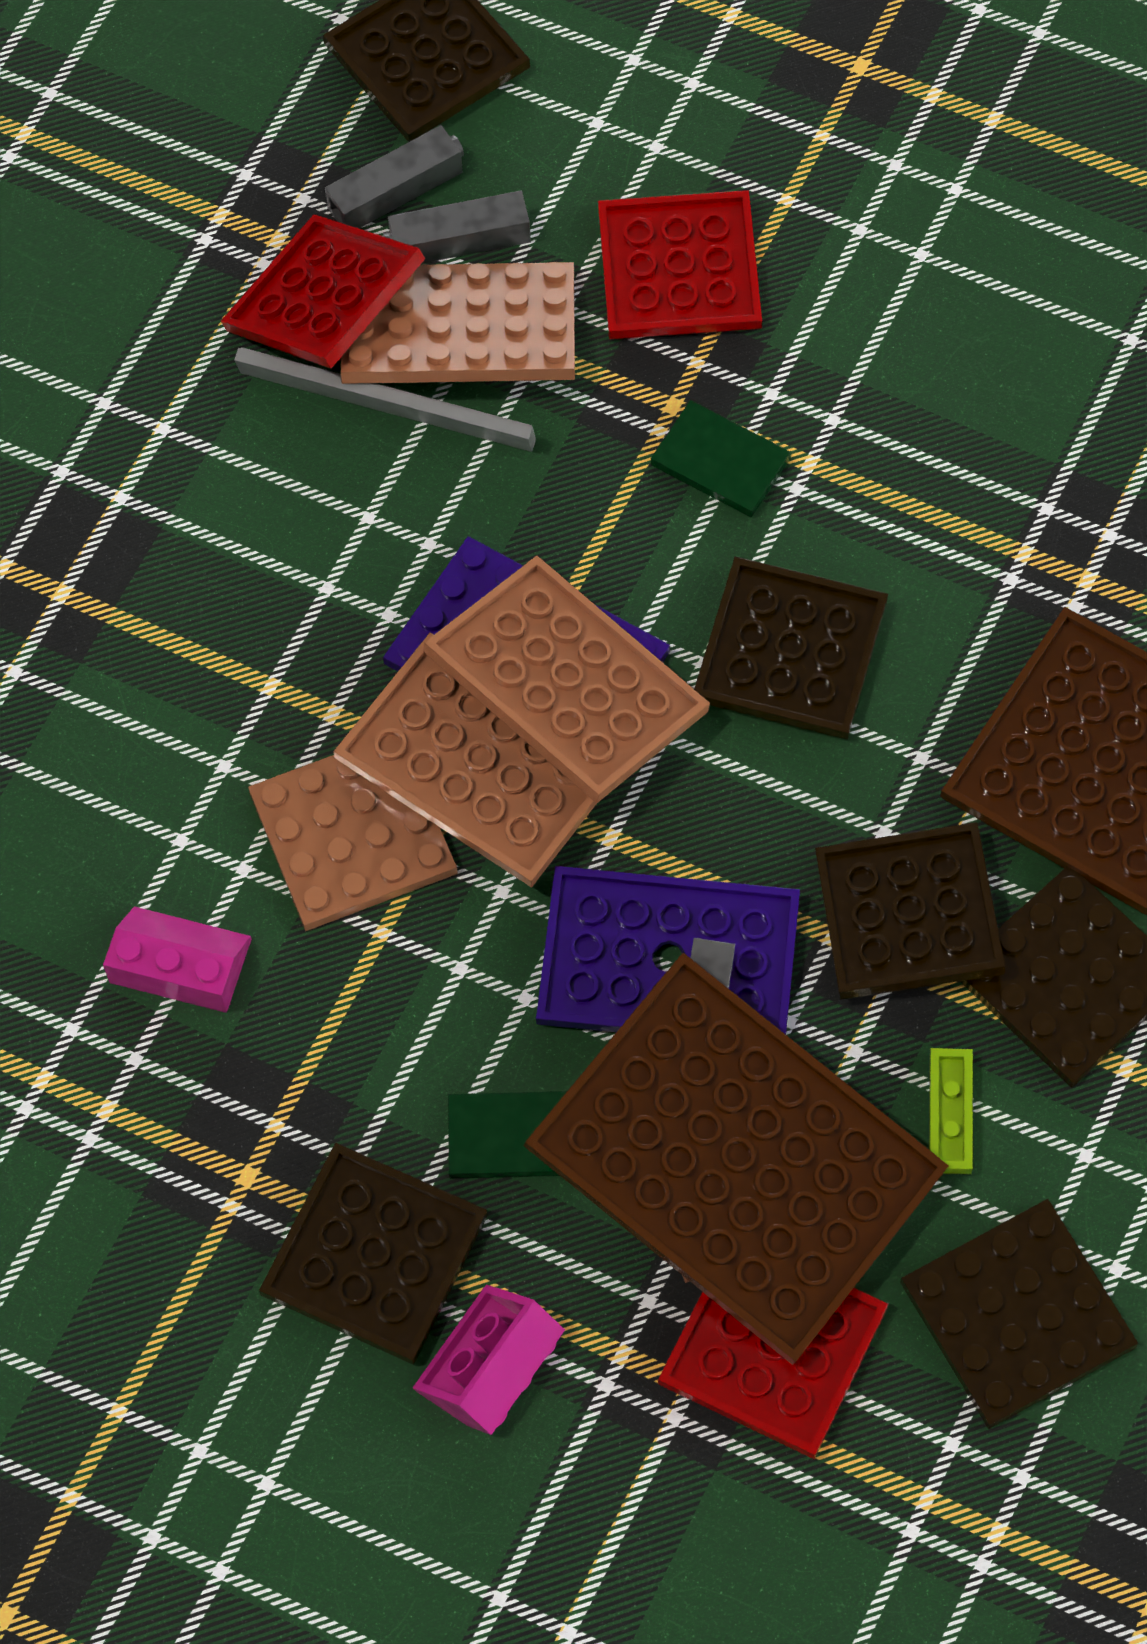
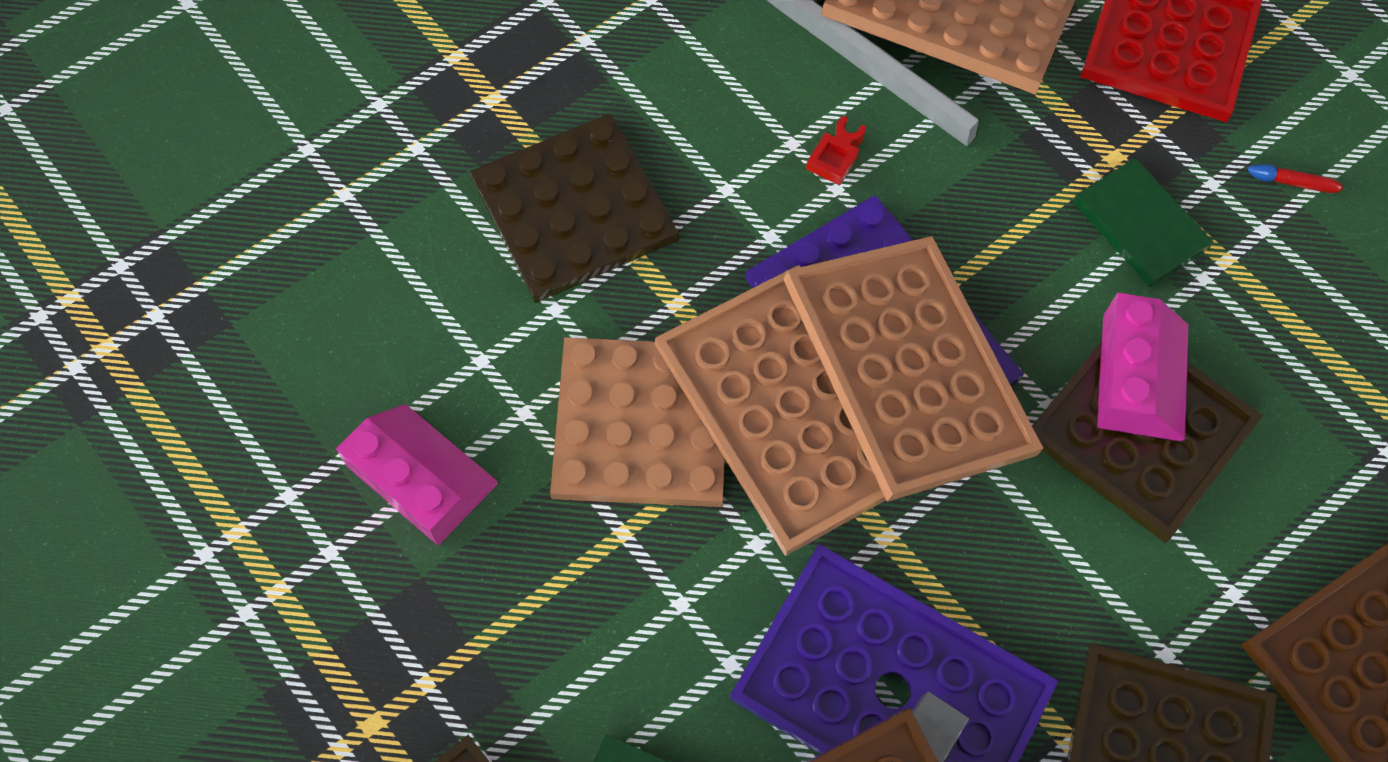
camera: 20 degrees right, 0 degrees up
(193, 664) = (573, 207): none -> dark brown plate
(416, 512) = (836, 154): none -> red plate
(770, 596) = (1143, 368): none -> dark pink slope
(842, 358) = (1290, 177): none -> red piece

